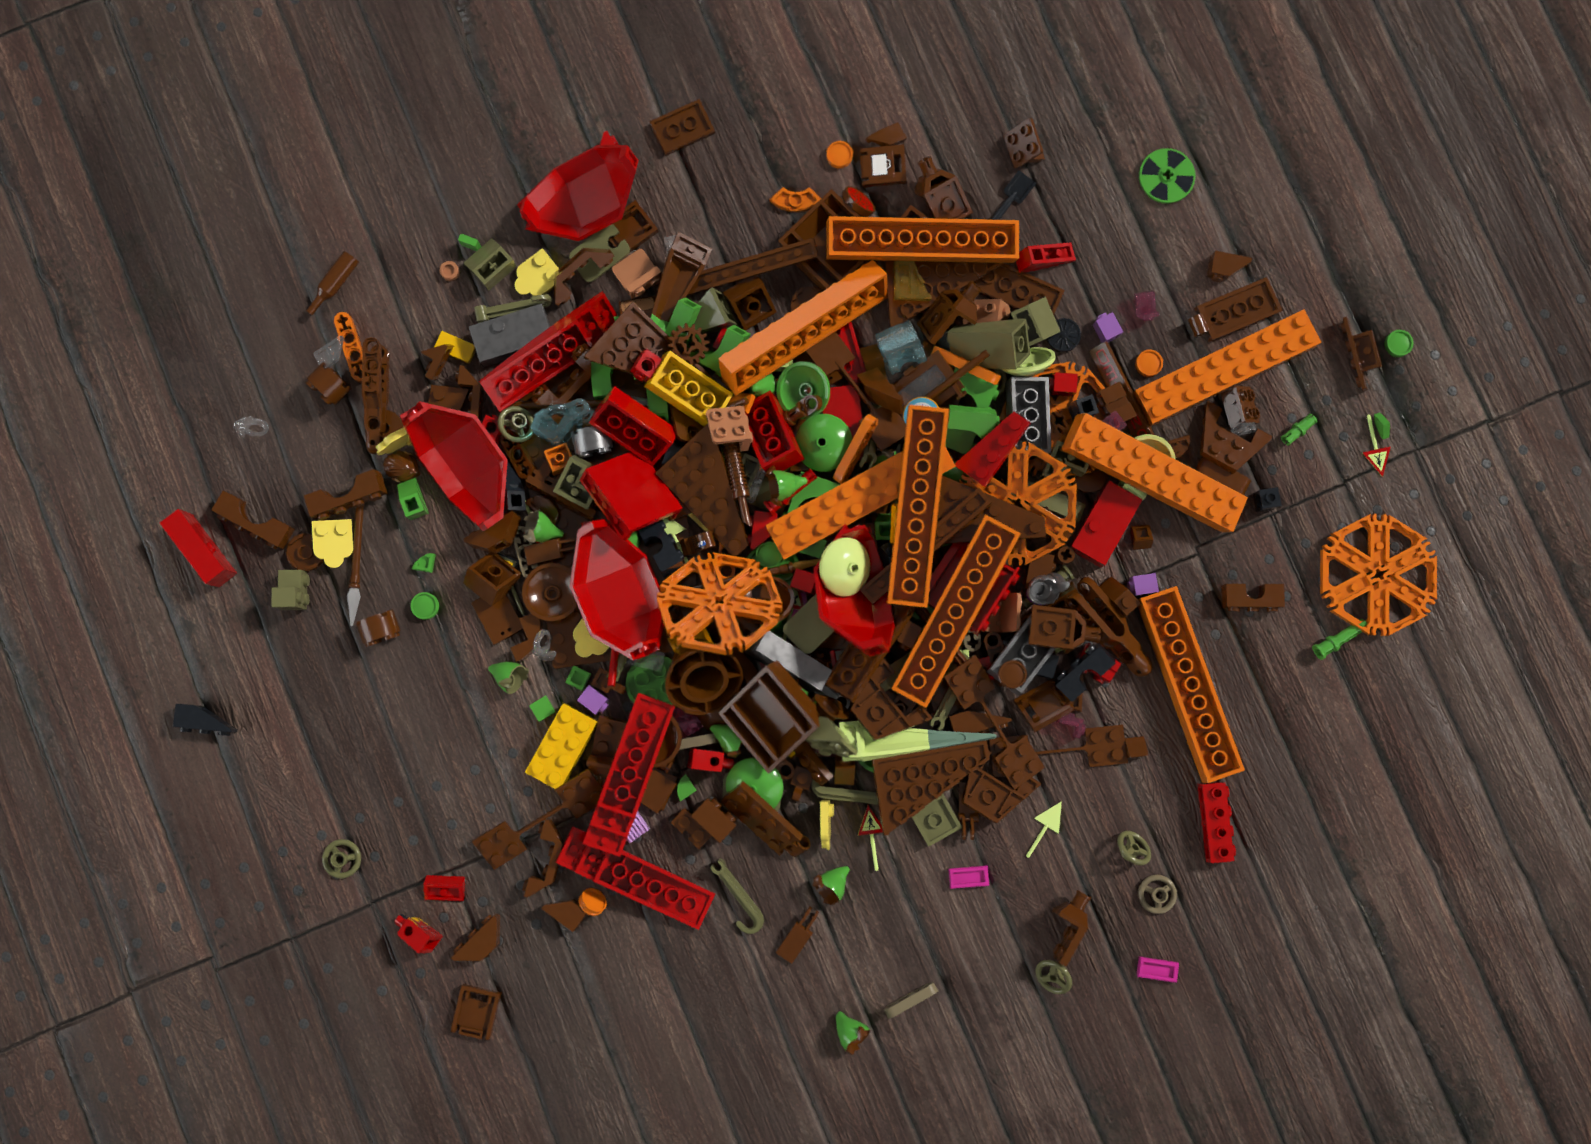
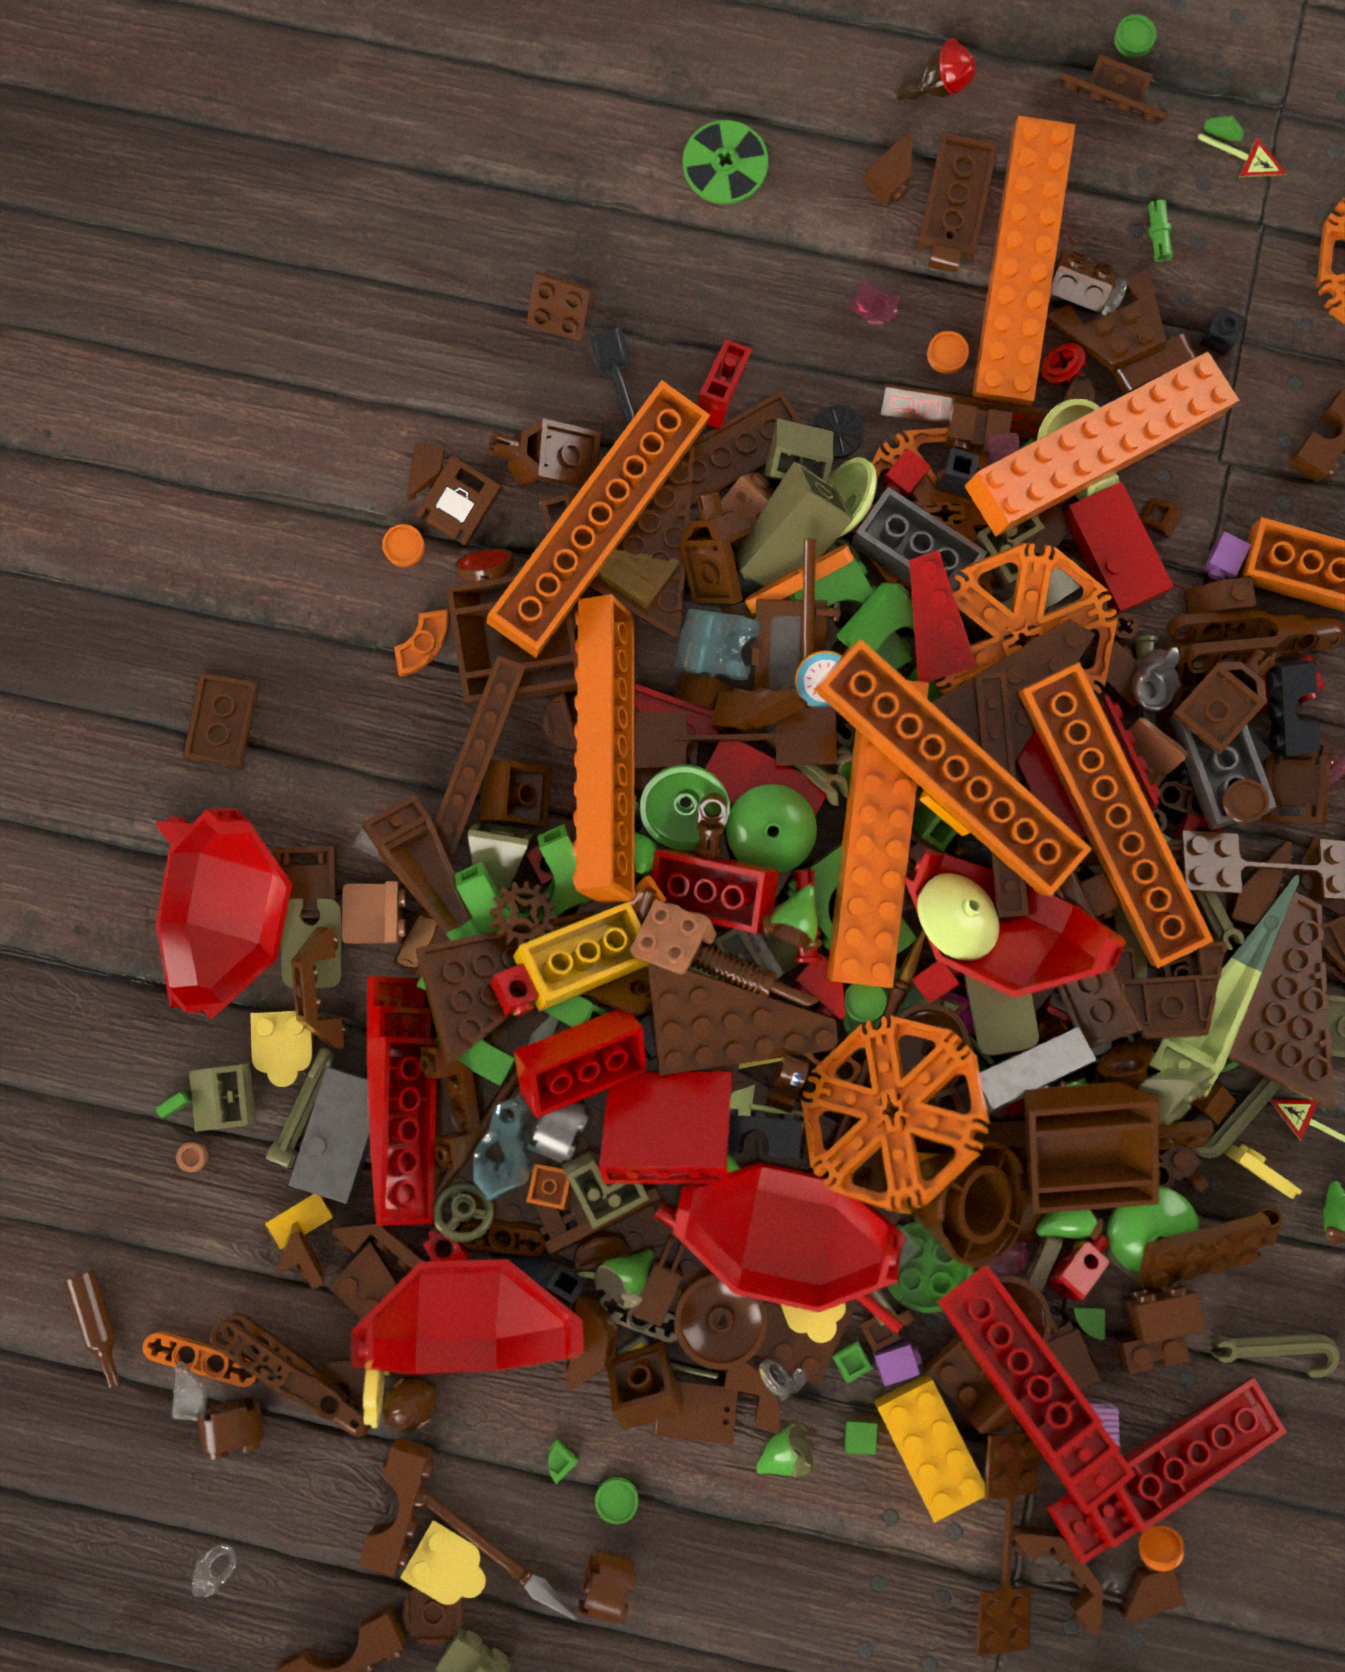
camera: 50 degrees left, 0 degrees up
(412, 499) = (463, 1420): bright green slope -> none
(855, 449) = (811, 794): orange beam -> none
(1107, 327) = (868, 371): medium lavender brick -> none
(1181, 423) = (1053, 363): none -> red gear
(1300, 255) = (945, 73): none -> piece

